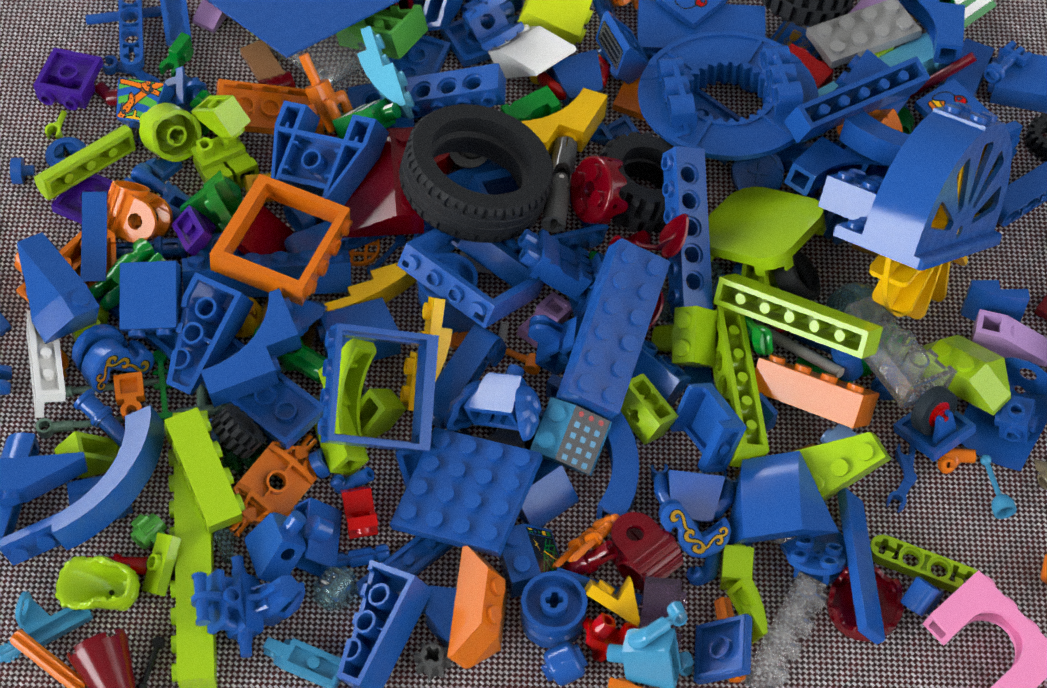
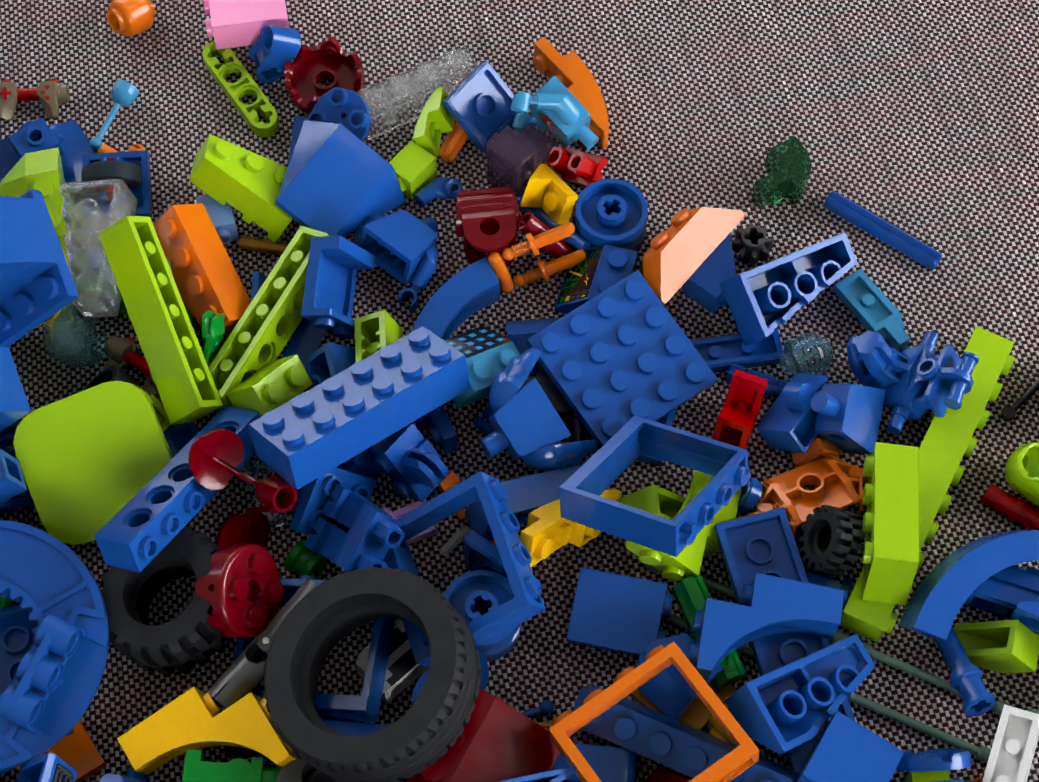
camera: 145 degrees left, 5 degrees up
(111, 354) = (922, 731): blue animal -> none
(129, 392) = (917, 692): orange plate -> none
(146, 530) = (970, 520): bright green gear -> none
(160, 360) = (872, 687): green piece -> none
(161, 564) = (974, 470): lime plate -> none
(384, 283) = (548, 667): yellow slope -> none
(564, 663) = (635, 171): blue head -> none
(619, 127) = (124, 715): blue slope -> none
(693, 542) = (431, 200): blue animal -> none
(861, 567) = (311, 86): blue tile -> none
(906, 463) = (169, 179): blue piece -> none

